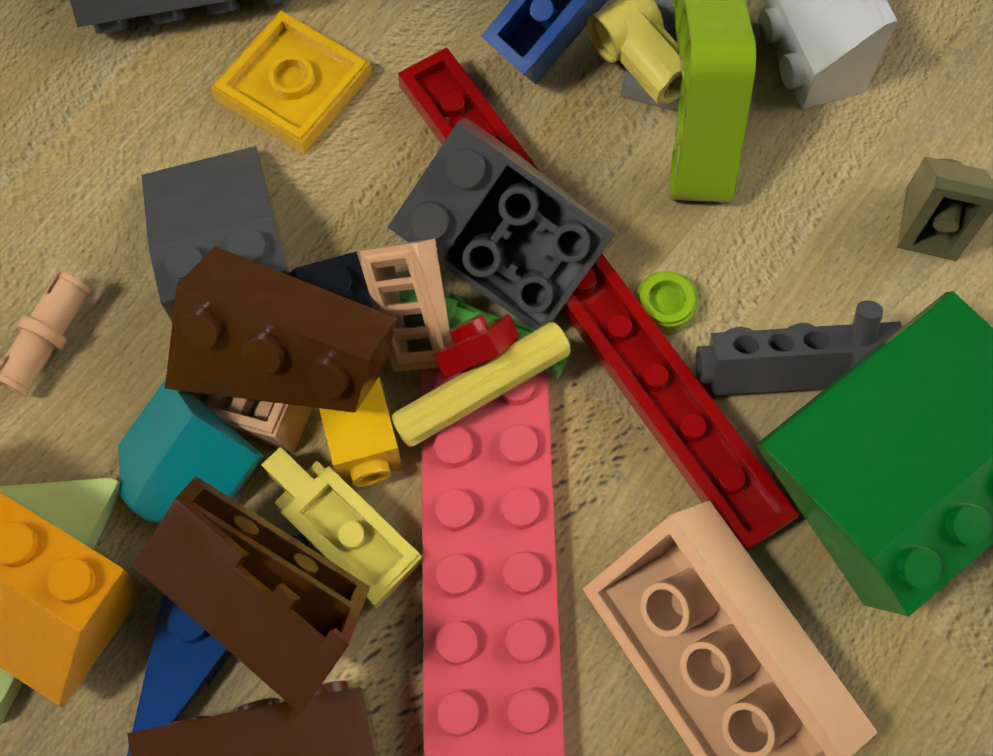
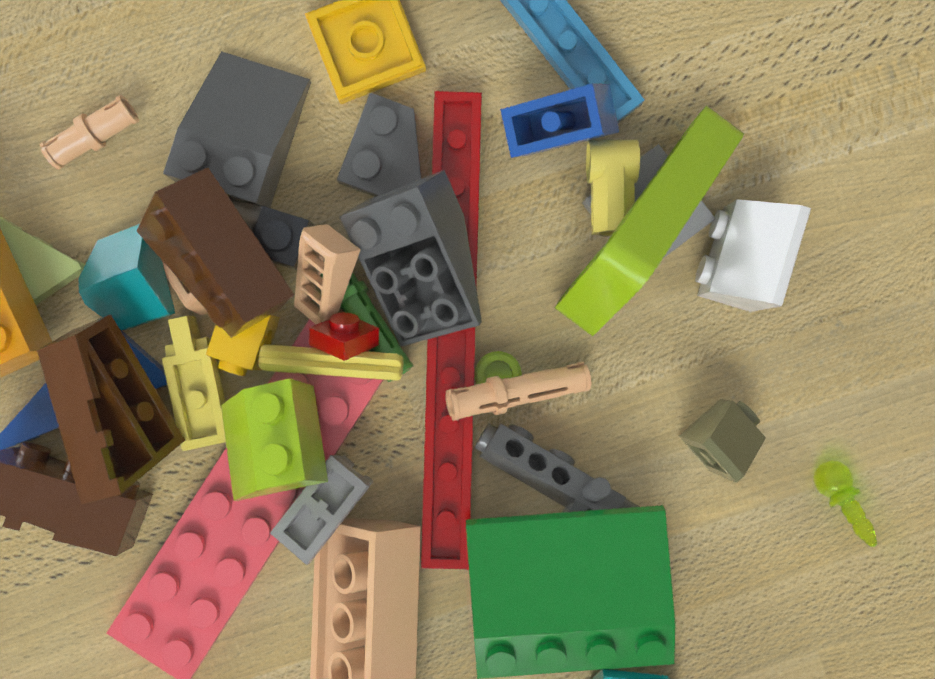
camera: 30 degrees right, 20 degrees up
(378, 162) = (382, 148): none -> dark grey wing
(473, 504) = (273, 439): none -> lime slope
(585, 552) = (321, 509): none -> light grey hinge
(687, 304) = (500, 394): none -> light nougat pin

